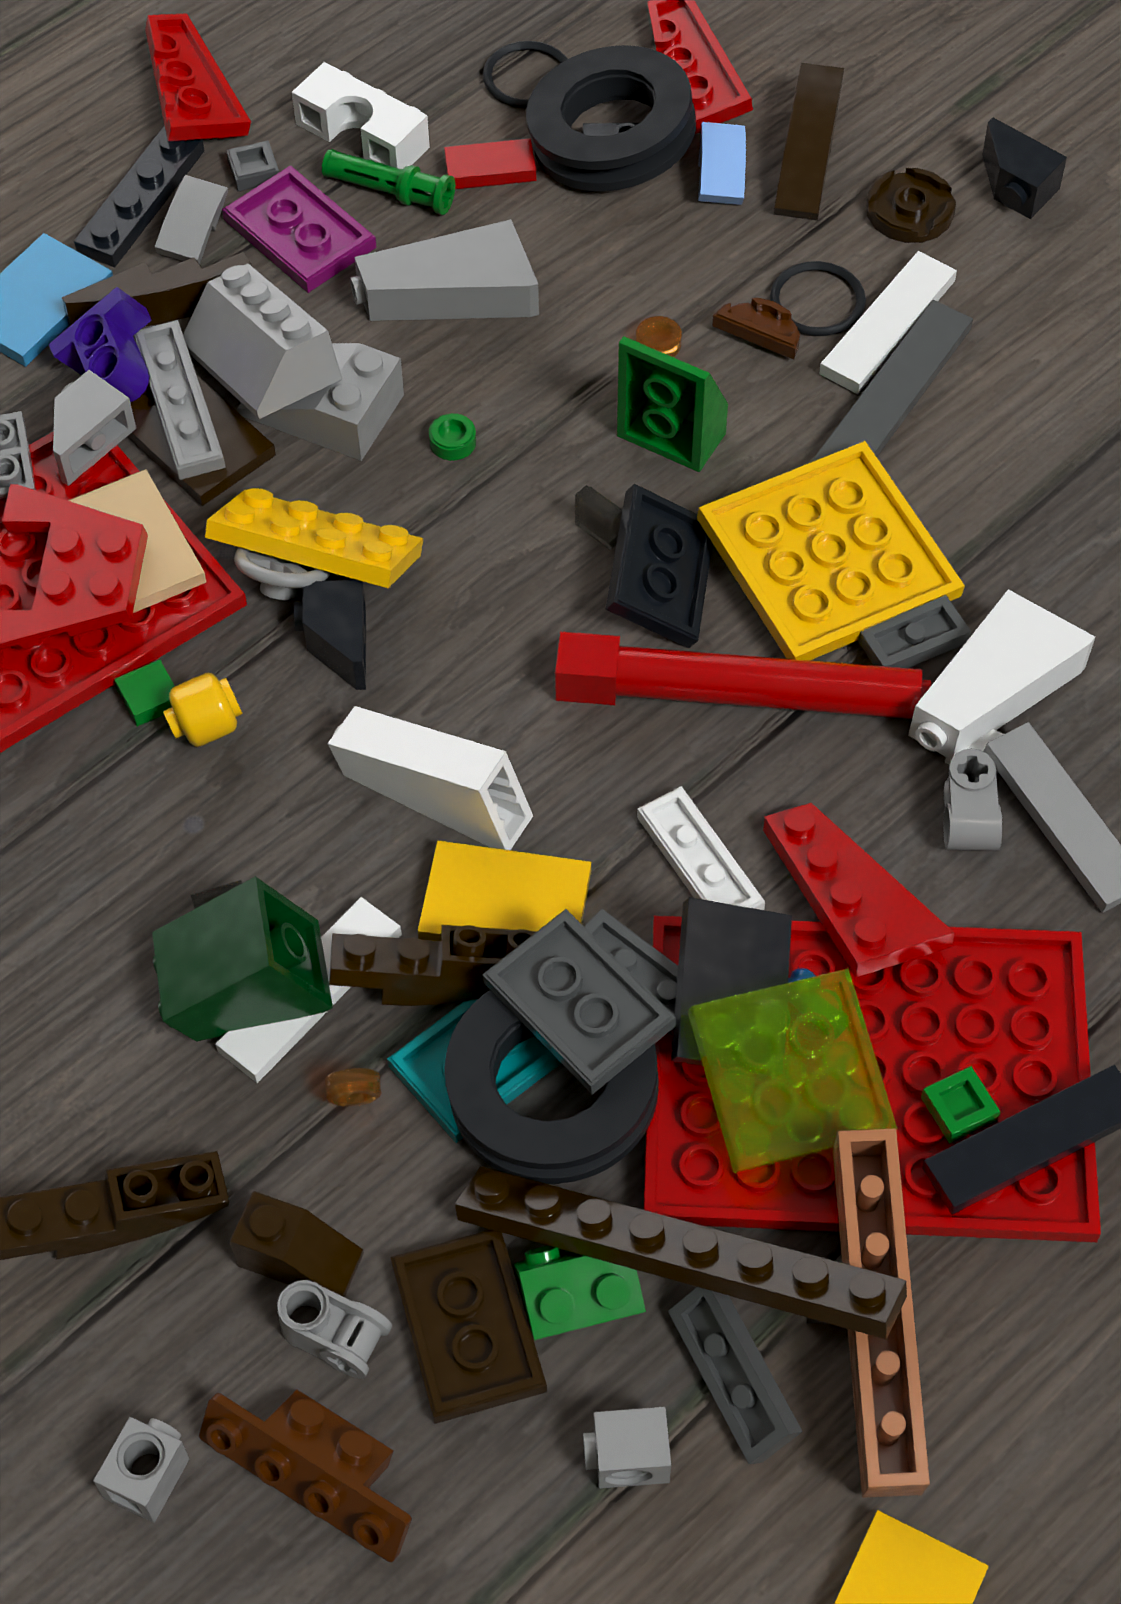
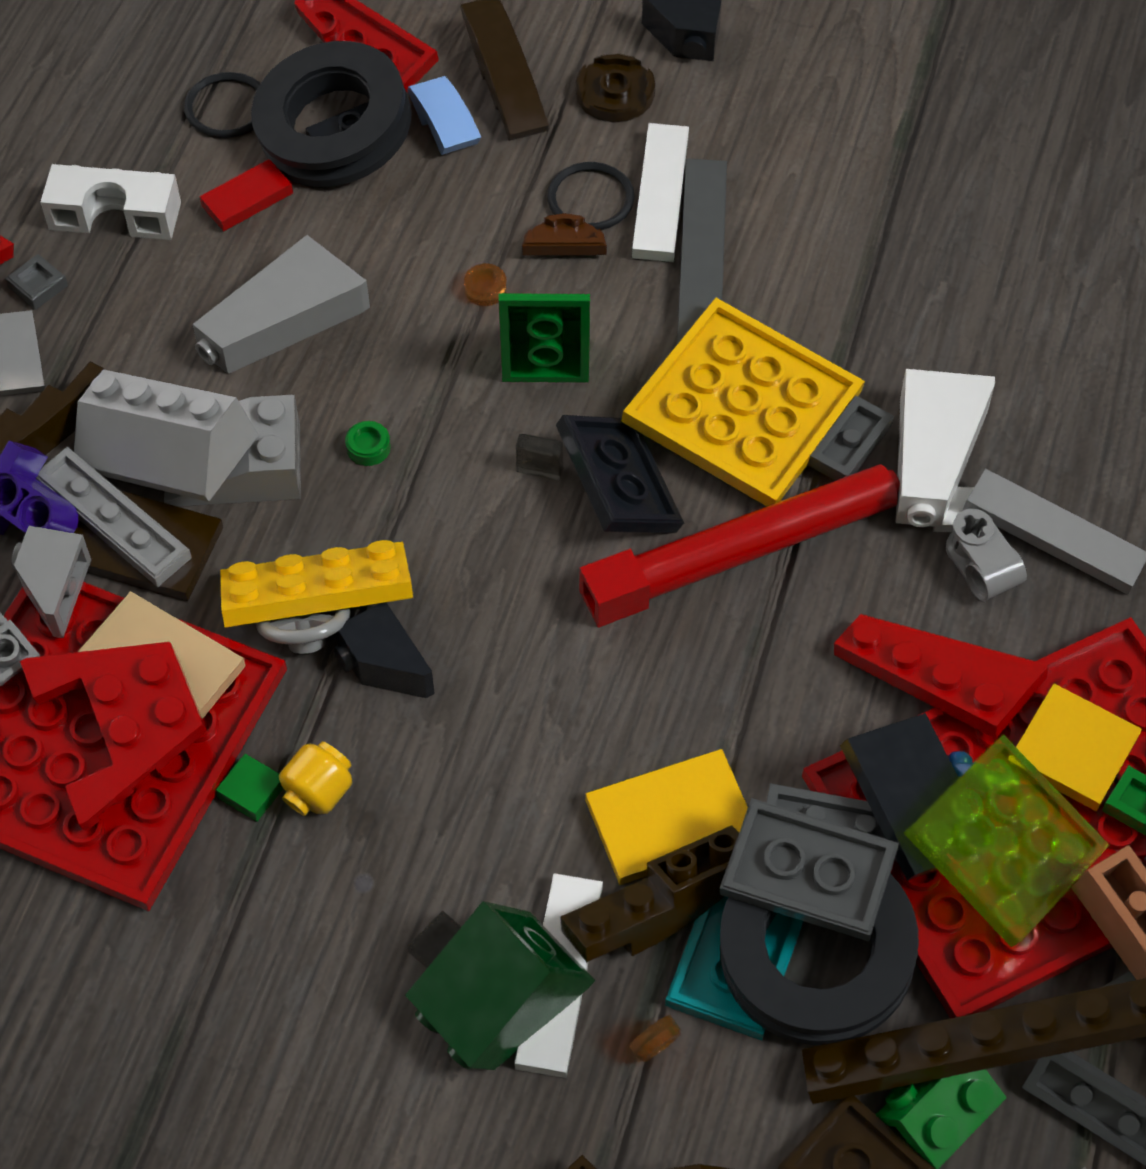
camera: 30 degrees left, 0 degrees up
(299, 228) = (114, 320): magenta tile -> none
(407, 183) = (189, 241): green pin -> none
(434, 774) = (549, 738): white slope -> none
(696, 851) = (799, 701): white tile -> none
(932, 1023) = (1077, 745): none -> yellow tile

